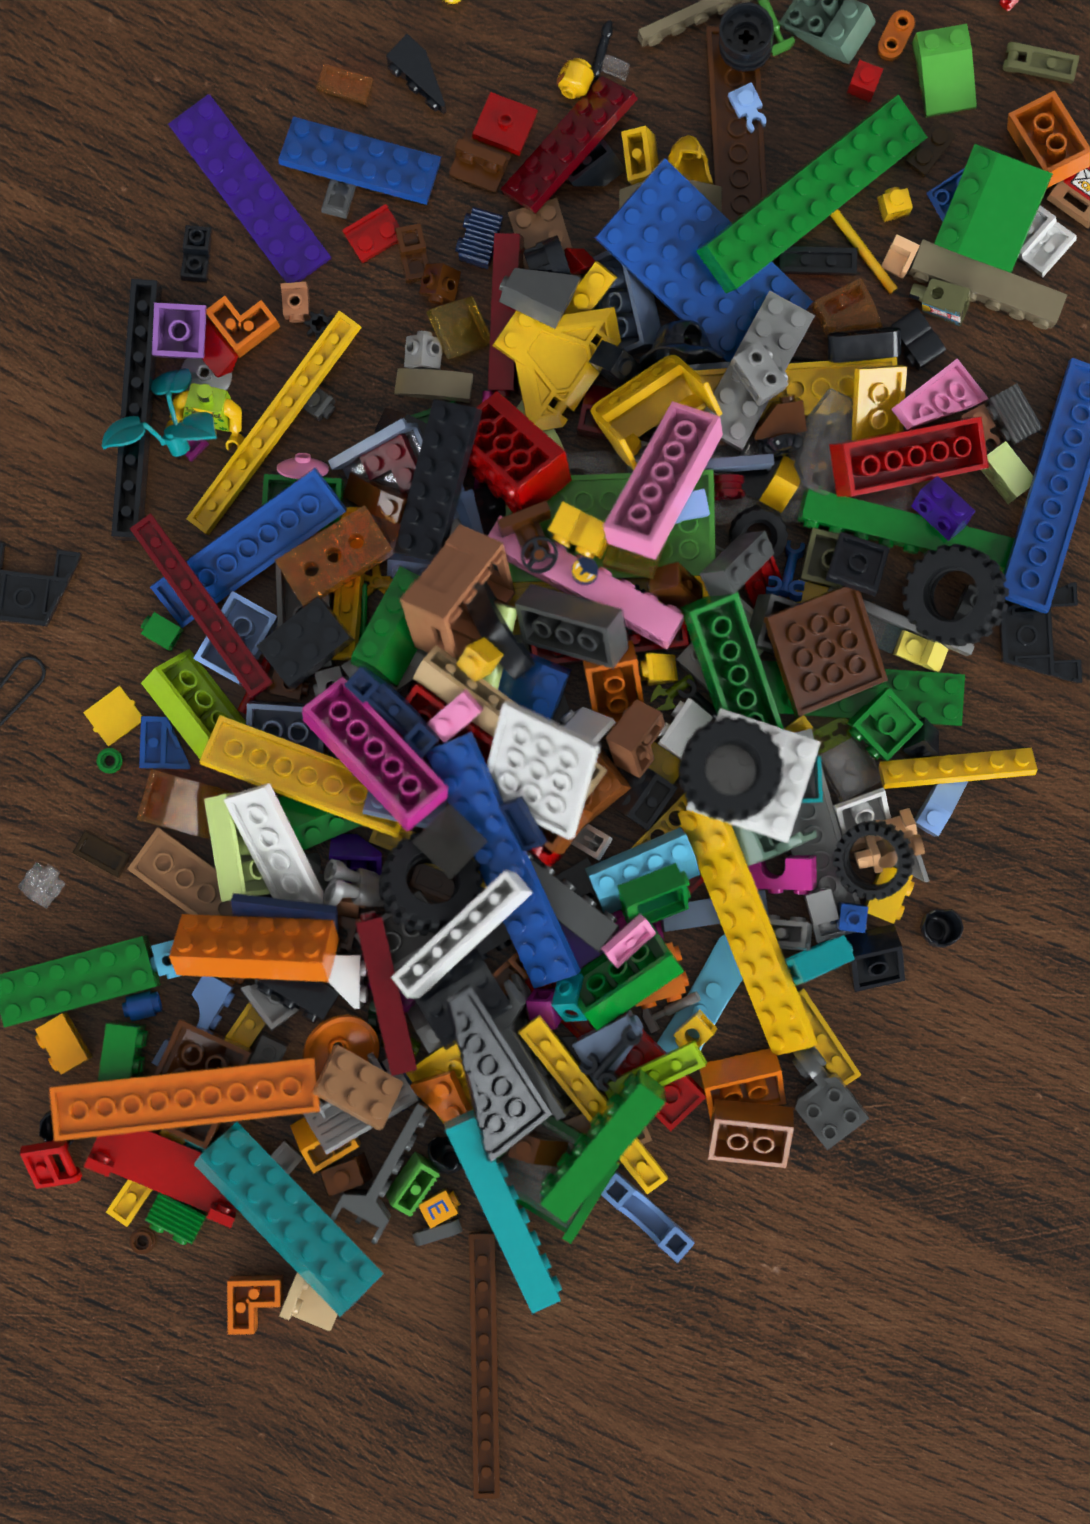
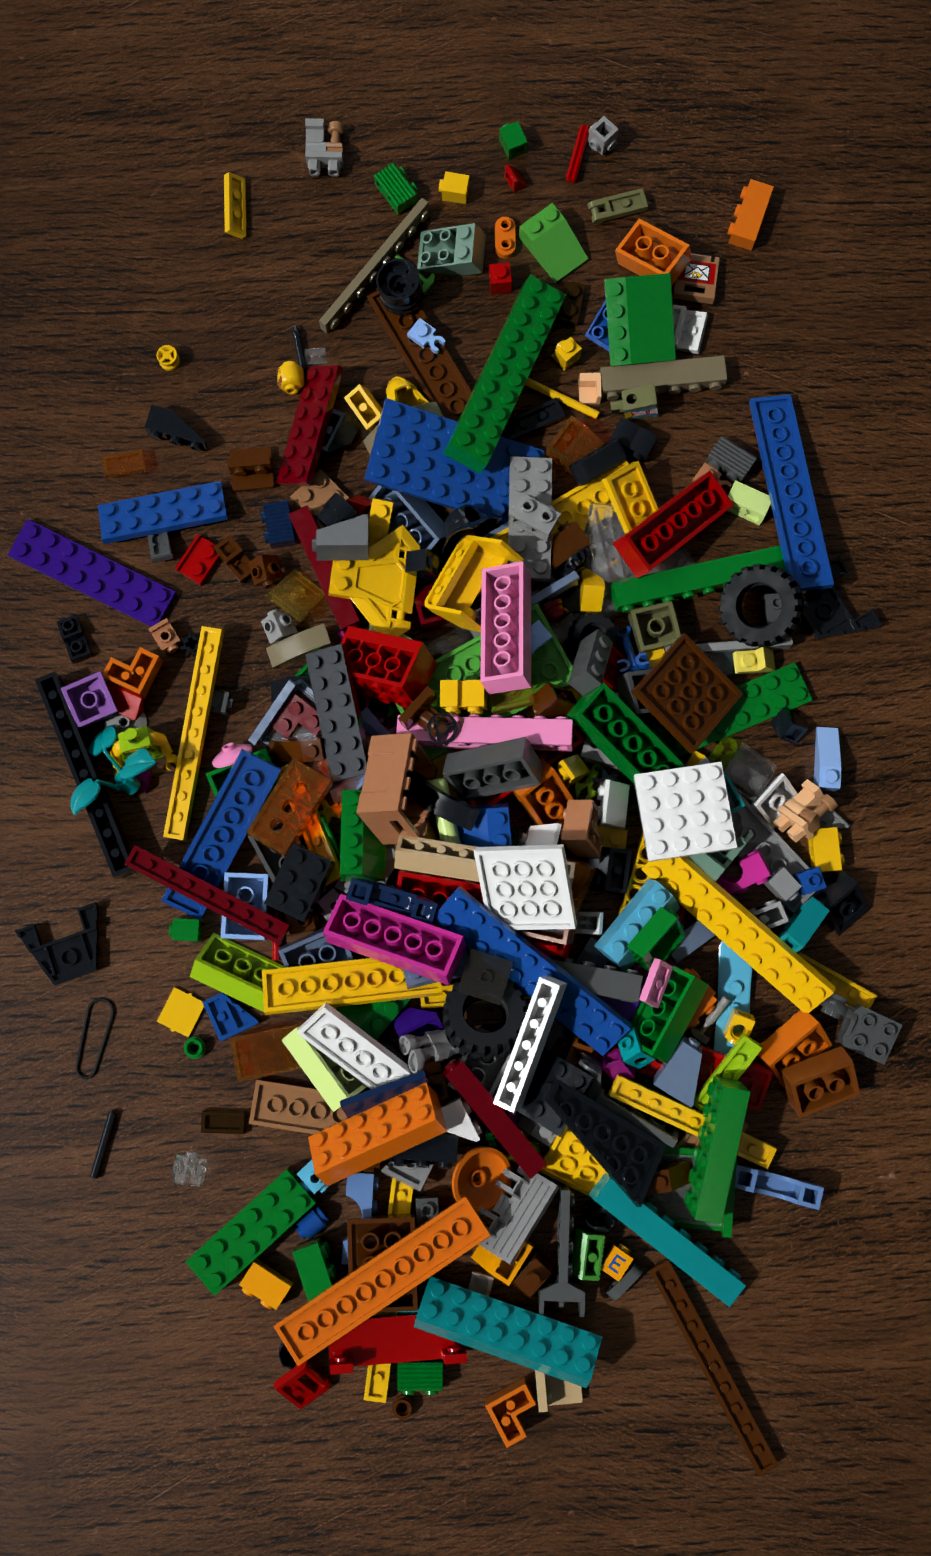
camera: 30 degrees left, 5 degrees down
(358, 1087) = (509, 1201): medium nougat plate -> none
(443, 1095) = (576, 1173): orange wing -> none
(455, 716) = (441, 879): bright pink plate -> none
(479, 659) = (437, 828): yellow brick -> none
(504, 124) = (255, 434): red plate -> none
(522, 823) = (533, 935): dark blue tile -> none
(585, 571) = (482, 723): tile -> none
(600, 1070) = (685, 1092): black bar -> none
(740, 734) = (668, 785): black tyre -> none
(851, 879) = (804, 854): black tyre -> none
(857, 563) = (677, 619): black plate -> none
(884, 725) = (757, 727): green plate -> none
(941, 396) = (672, 471): bright pink wing -> none
(941, 927) = (877, 855): black hair -> none
(943, 508) = (718, 548): dark purple brick -> none
(957, 768) = (826, 732): yellow plate -> none

